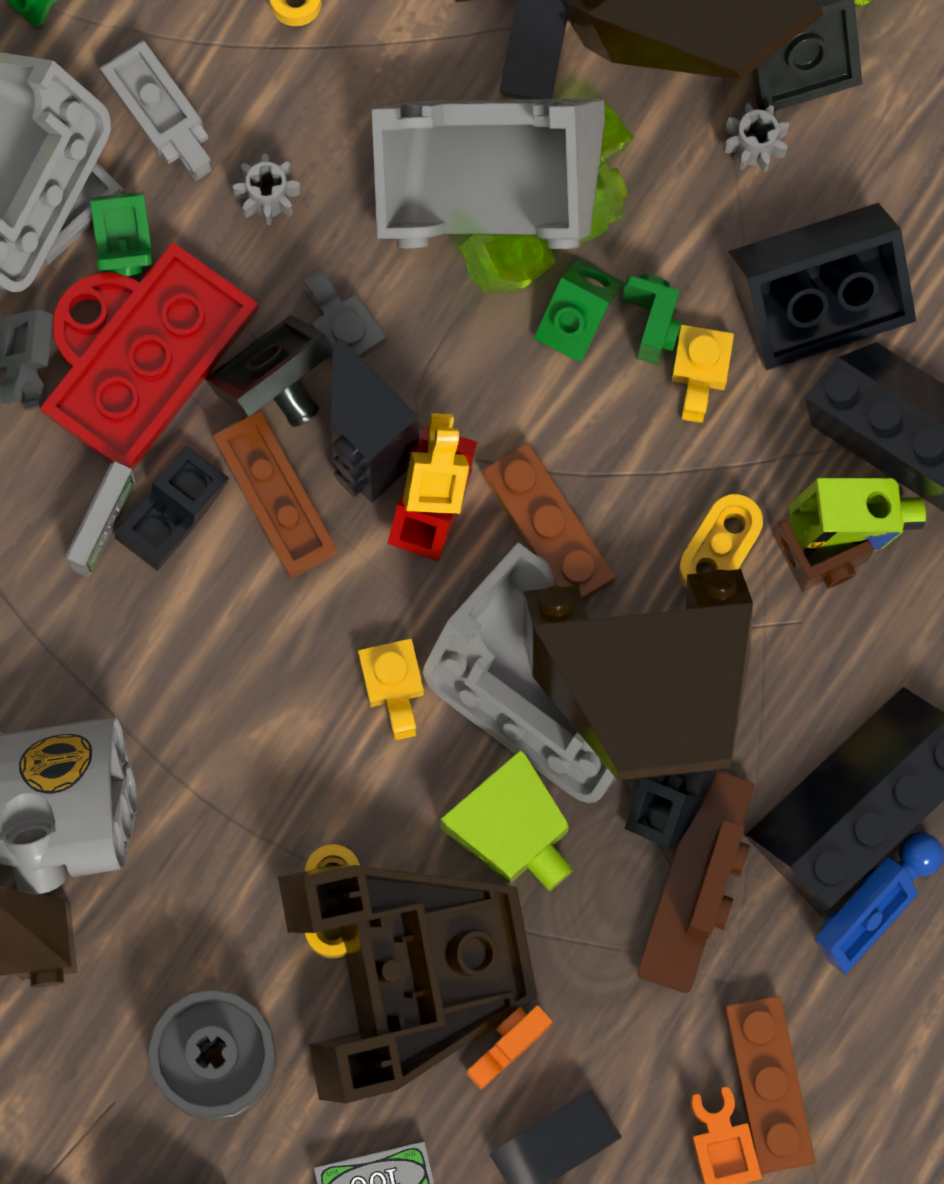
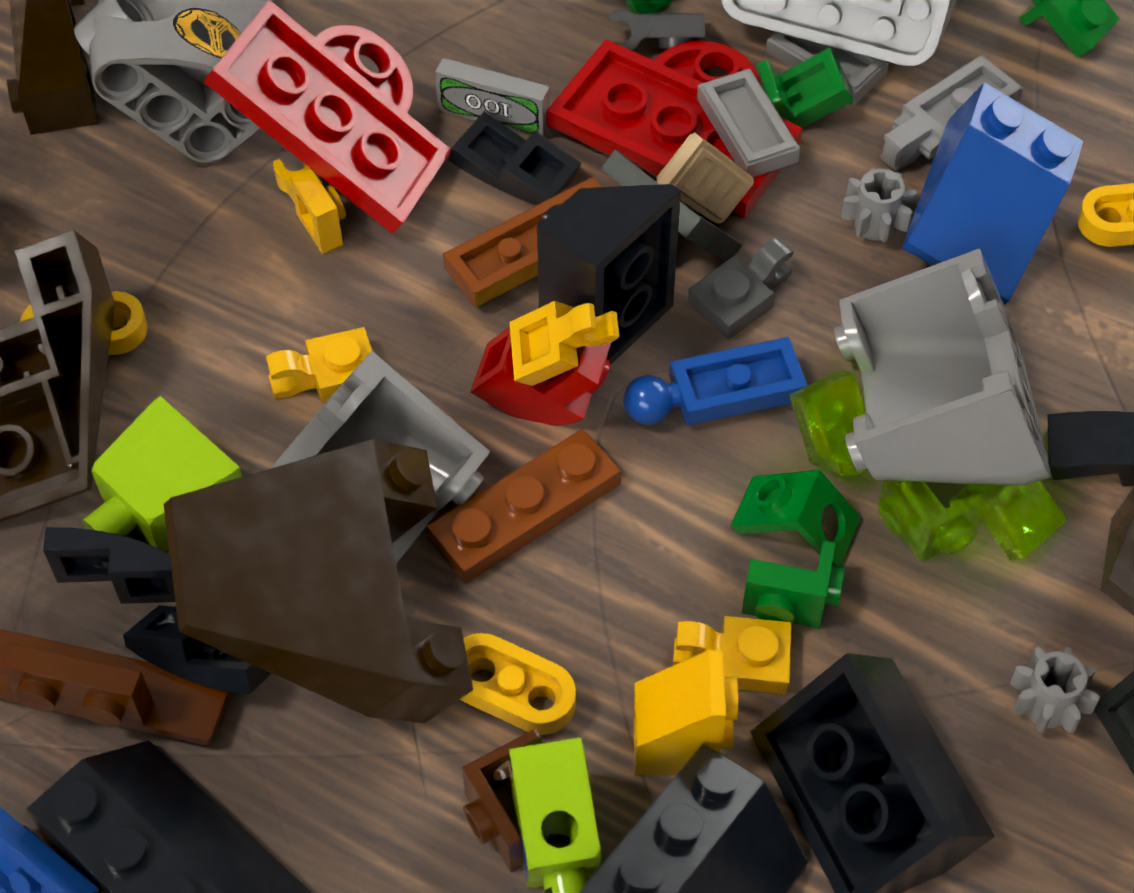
camera: 90 degrees right, 20 degrees down
(135, 657) = (333, 109): none -> plate
(170, 288) = (748, 123): none -> light grey tile
(218, 688) = (315, 206): none -> yellow plate
(250, 331) = (706, 178): none -> tan slope
(274, 90) = (993, 186): none -> blue slope
(447, 348) = (719, 384): none -> blue plate
(597, 849) = (135, 568): none -> black slope
(773, 412) = (682, 711): none -> yellow slope

